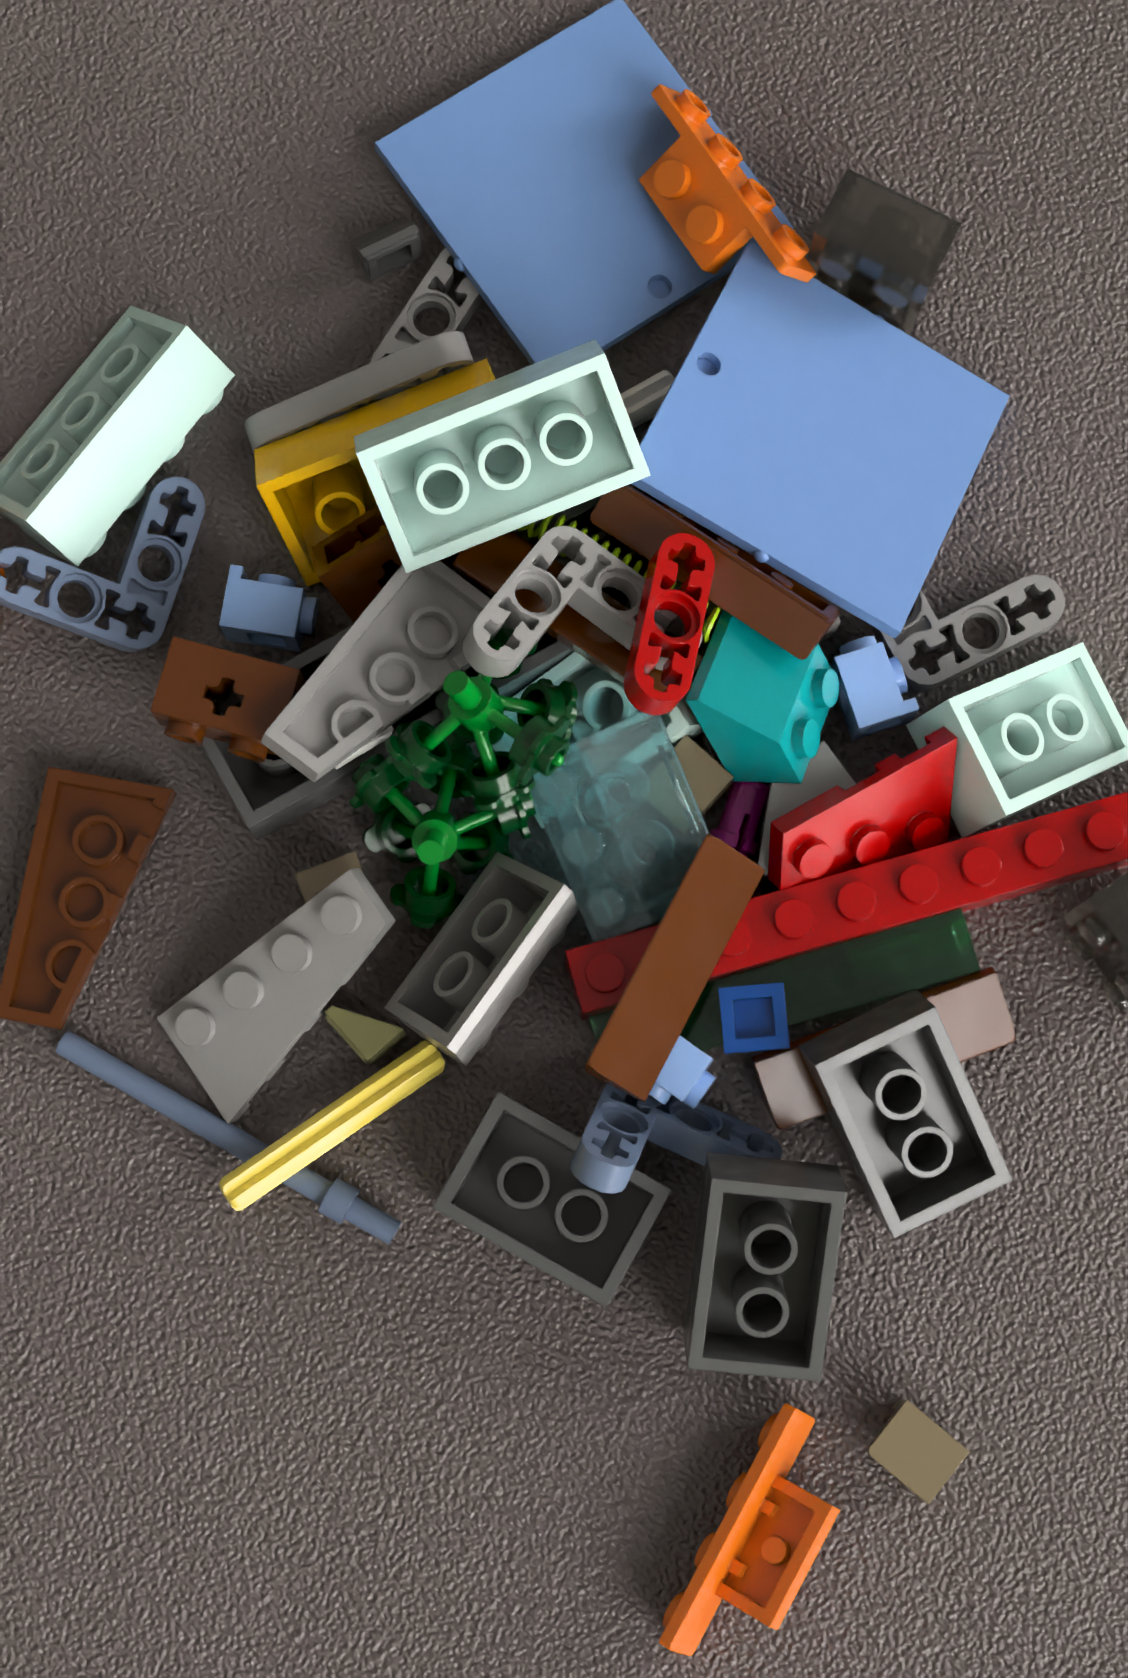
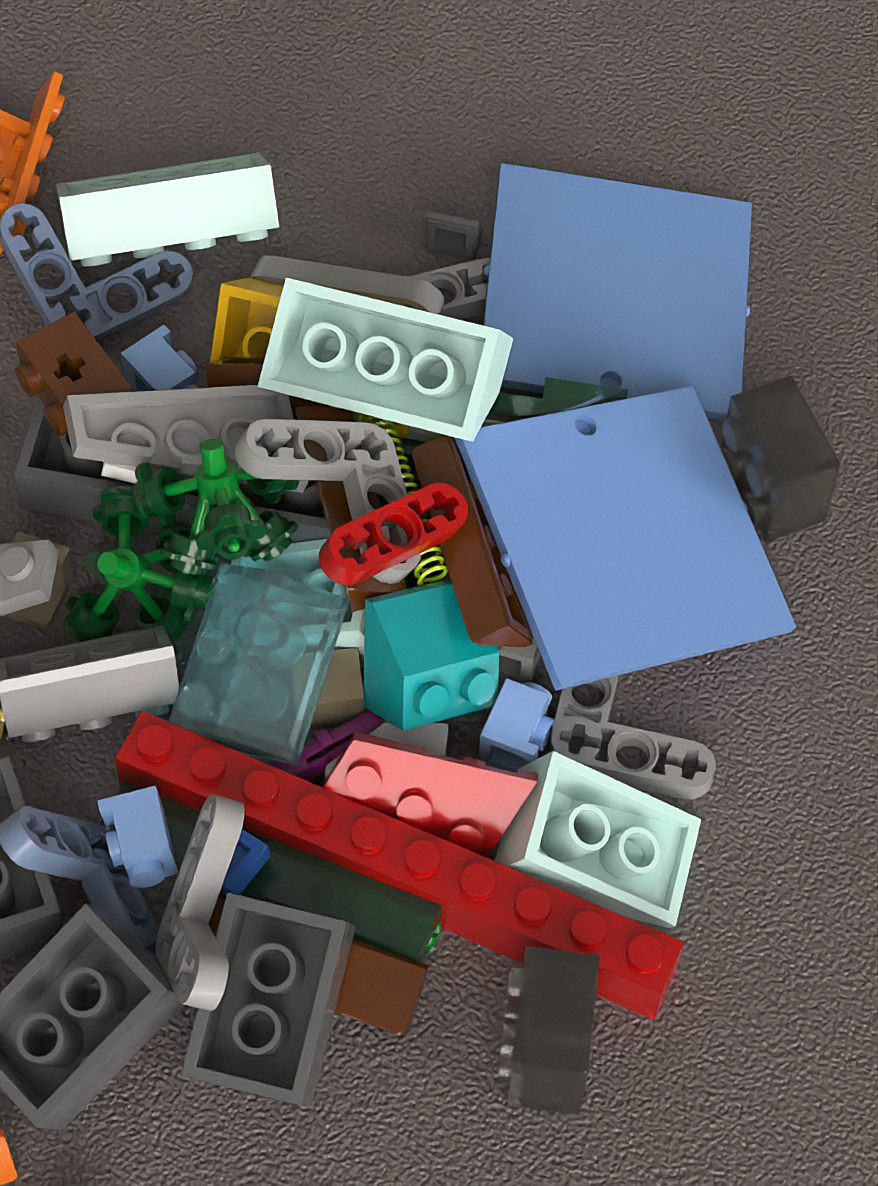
camera: 40 degrees right, 20 degrees down
(671, 339) = (557, 397): none -> clear green slope
(674, 968) = (197, 763): reddish brown slope -> none
(711, 198) = (694, 345): orange bracket -> none
(781, 1112) = (185, 940): none -> light grey beam

